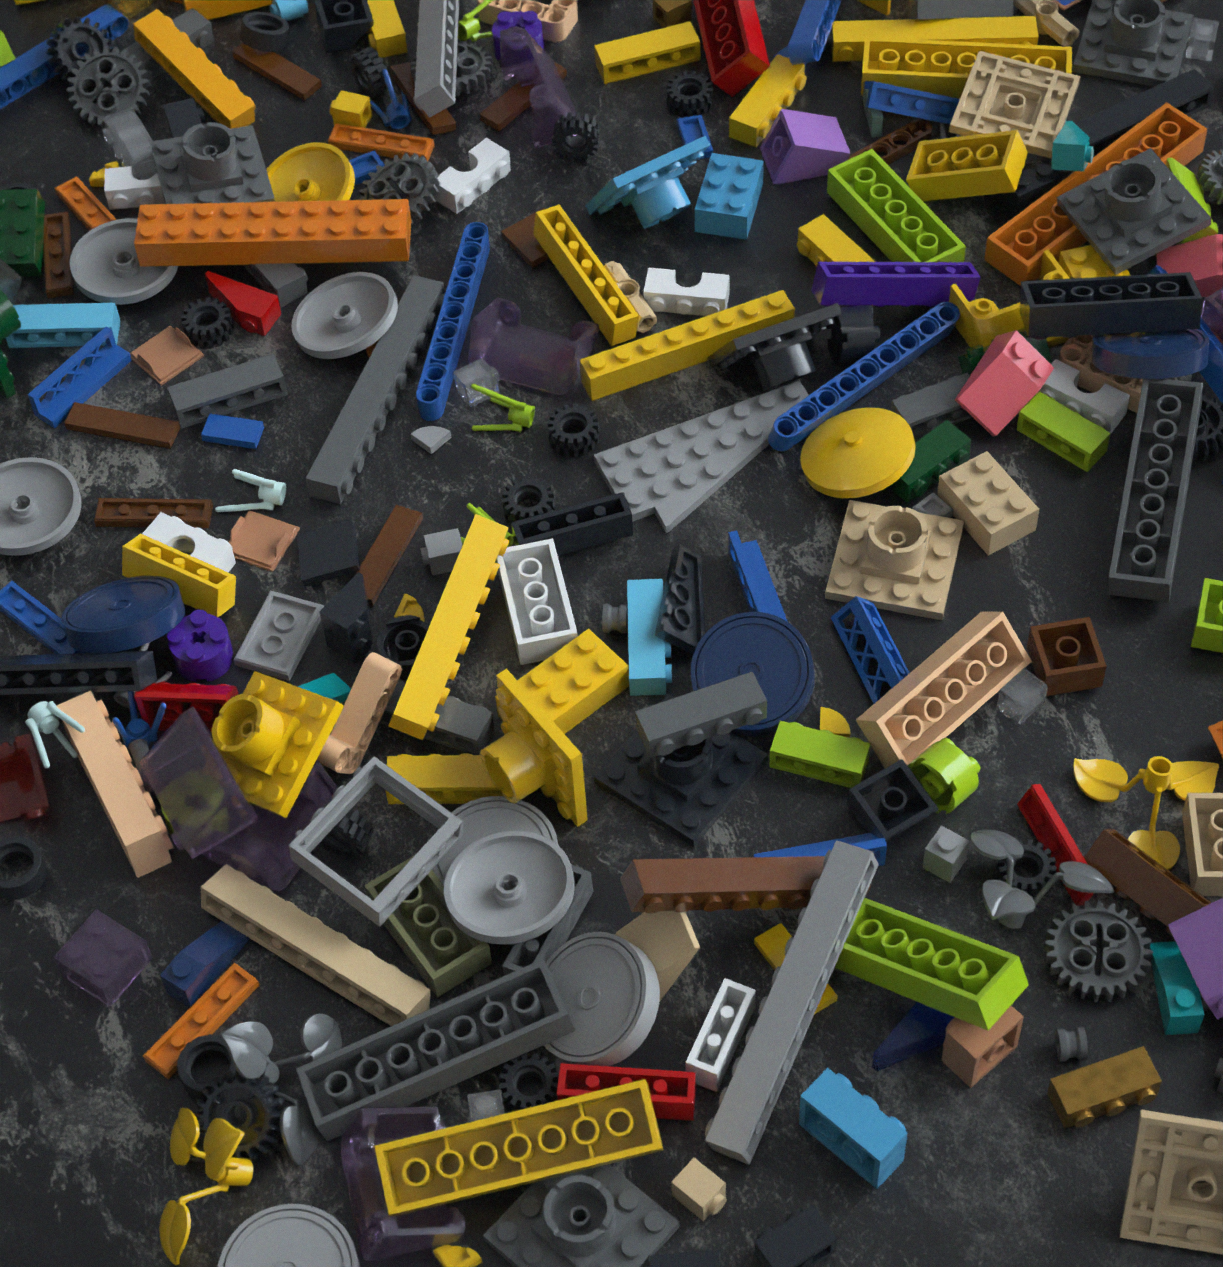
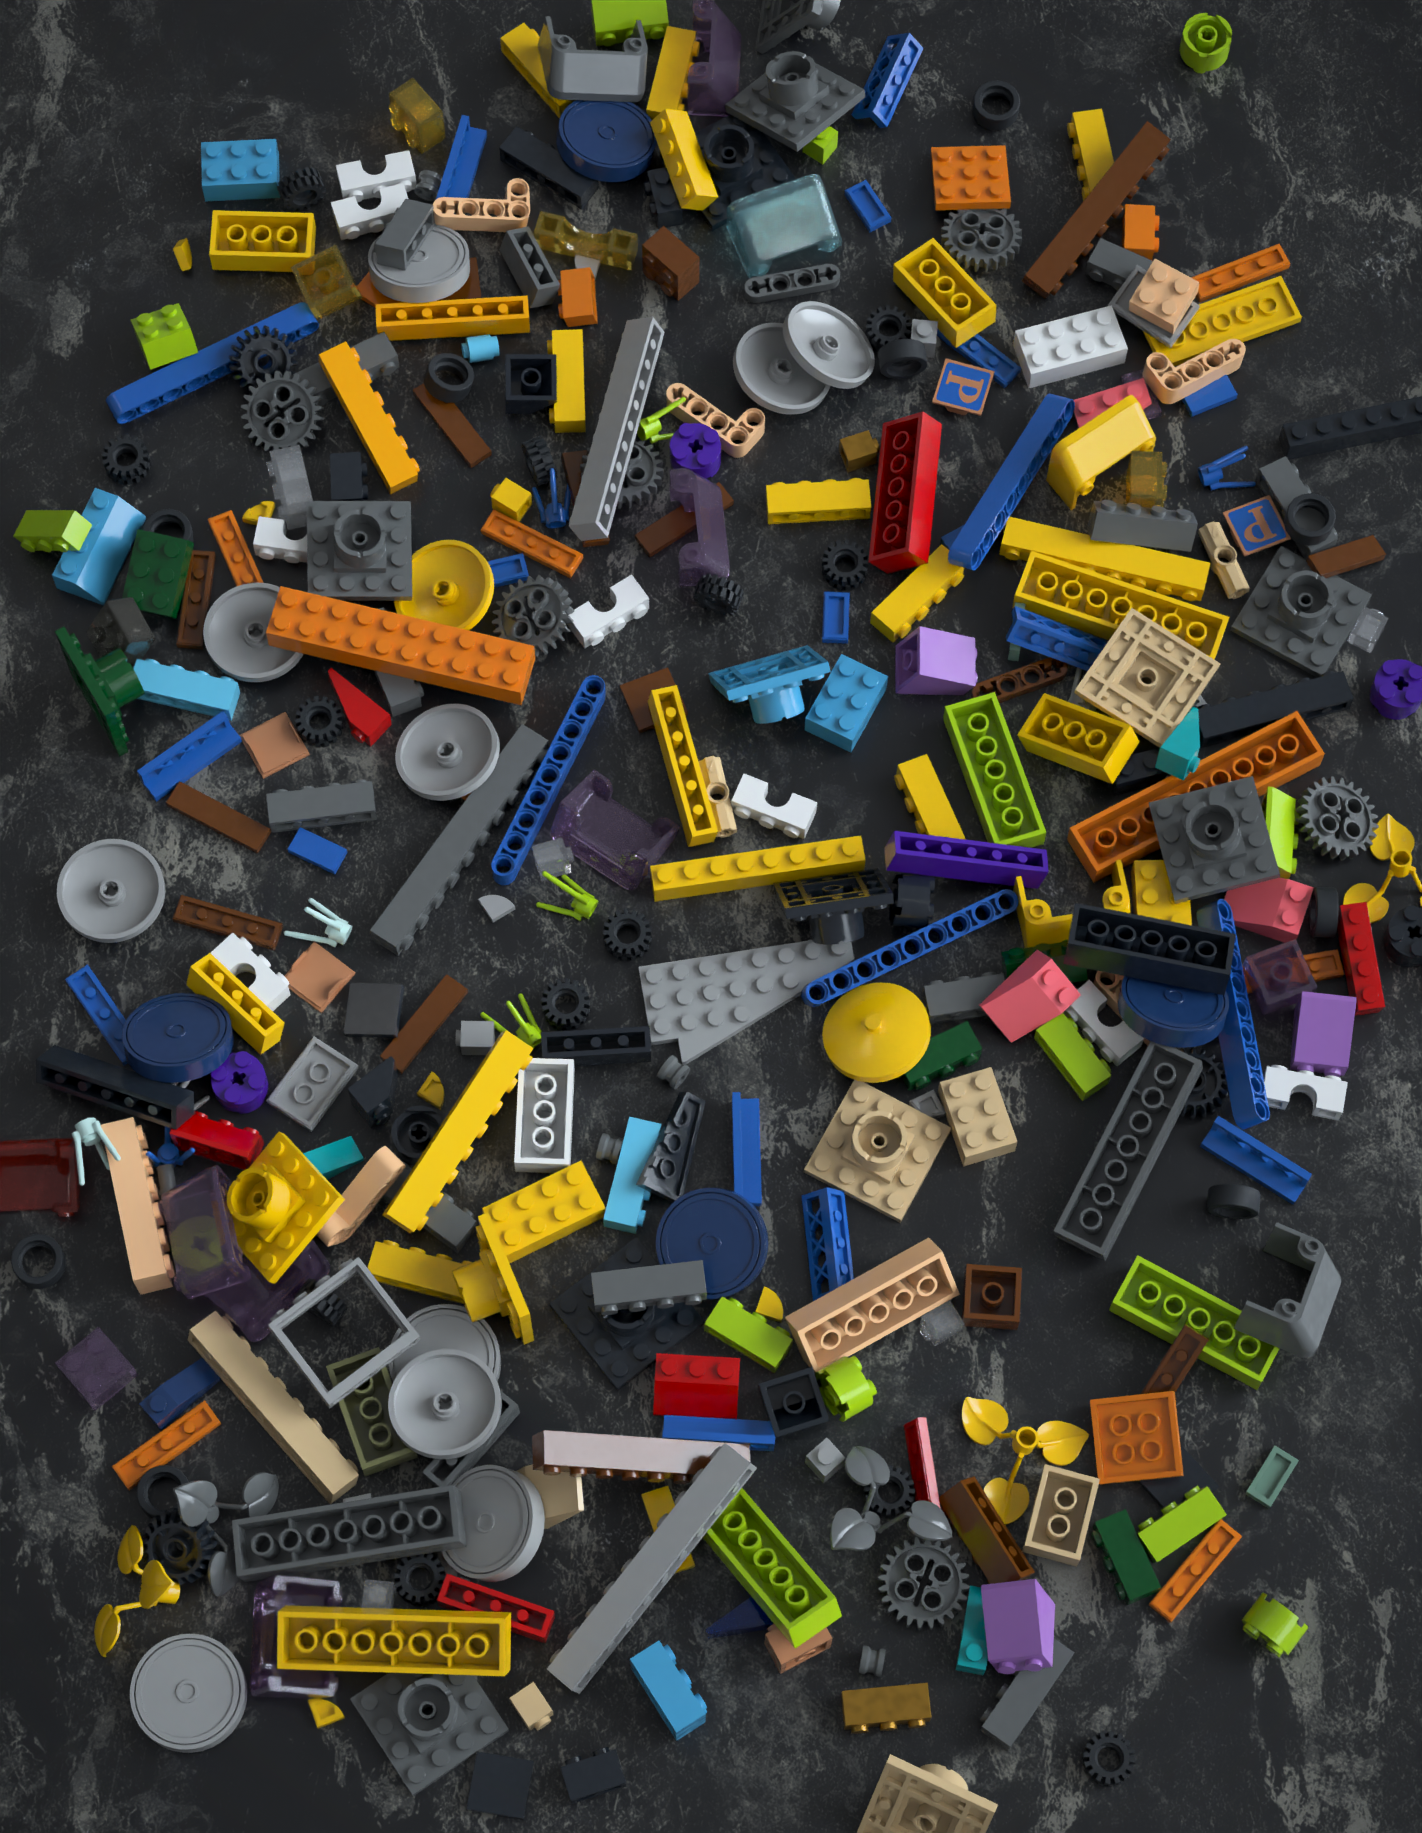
camera: 10 degrees right, 15 degrees up
(660, 535) = (673, 1072): none -> dark grey wheel
(721, 1033) = (586, 1577): white brick -> none
(779, 814) = (696, 1386): none -> red slope

